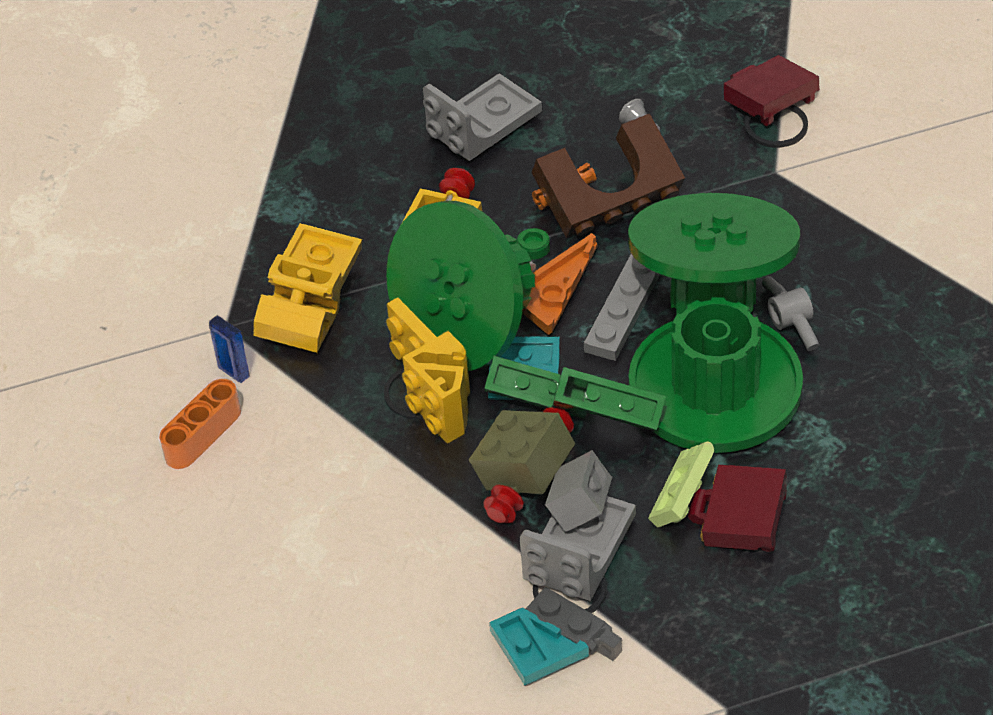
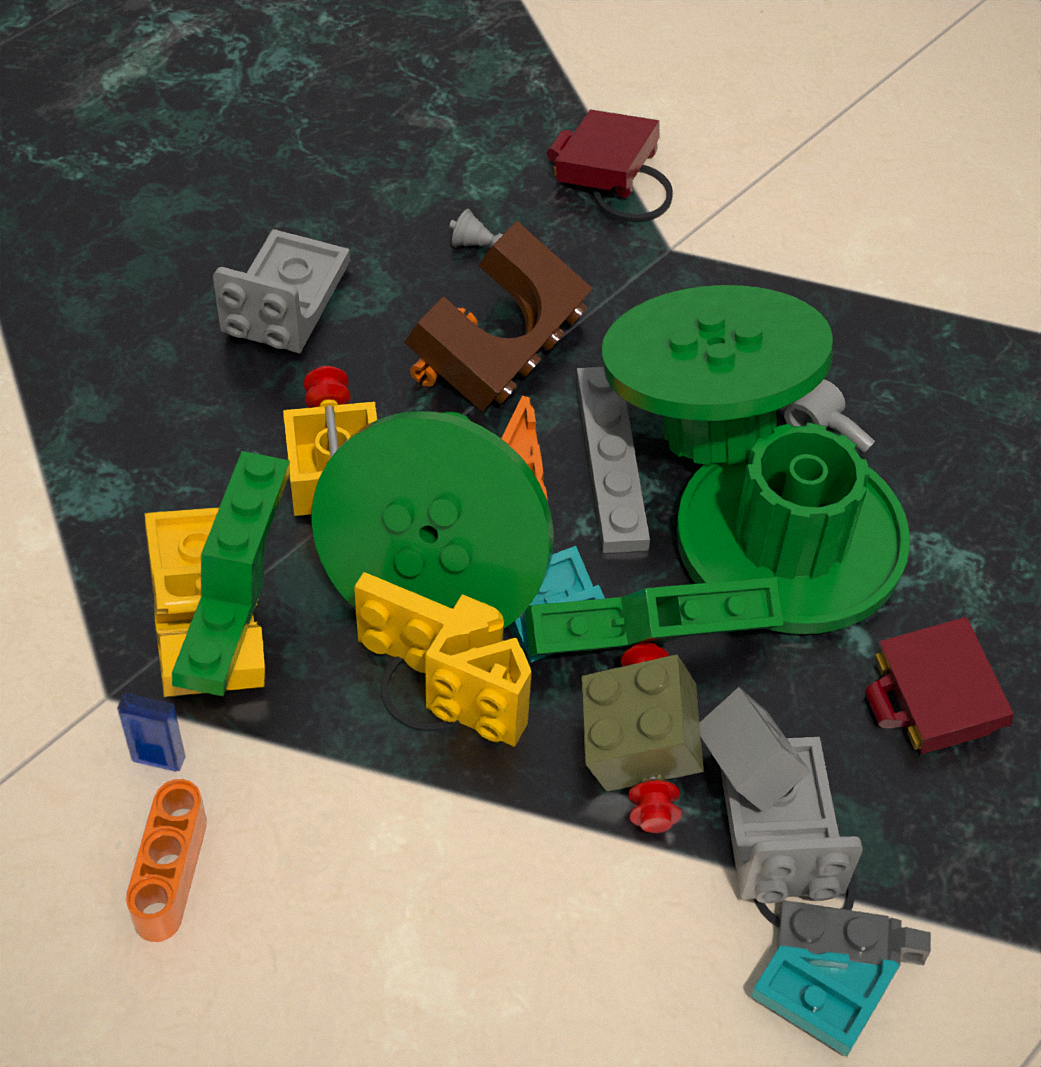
camera: 35 degrees left, 5 degrees up
(314, 266) = (231, 574): none -> green bracket
(681, 485) = (850, 686): yellowish green hinge -> none

